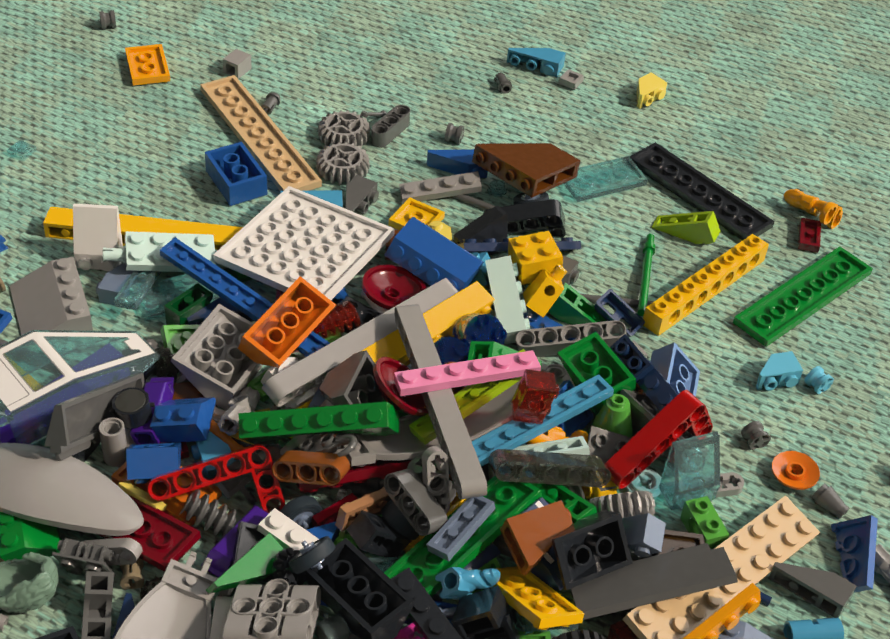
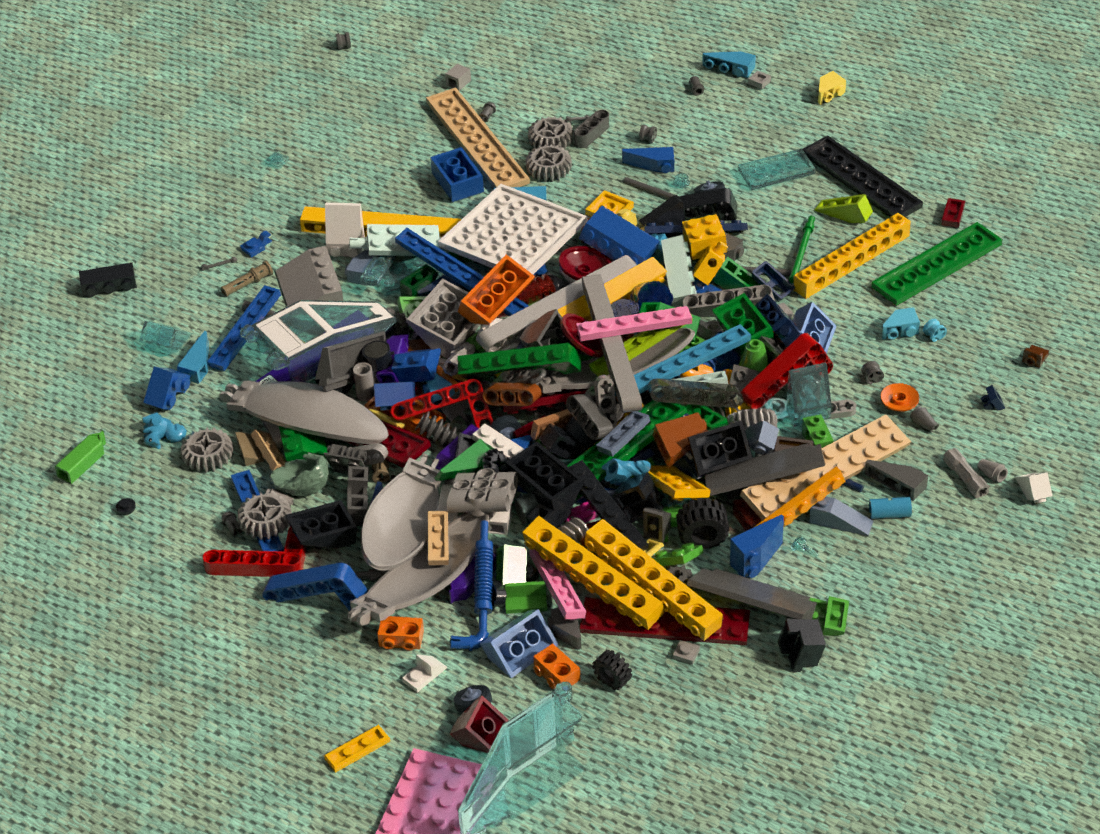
camera: 10 degrees right, 0 degrees up
(147, 64) = (379, 80): light orange plate -> none
(311, 555) = (510, 451): black wheel -> none
(360, 194) = (562, 189): dark grey slope -> none
(441, 187) = (632, 180): light grey plate -> none
(527, 166) = (707, 160): reddish brown slope -> none
(534, 396) = (683, 339): clear red brick -> none
(829, 212) = (970, 192): light orange piece -> none
(857, 549) = (936, 452): blue wing -> none

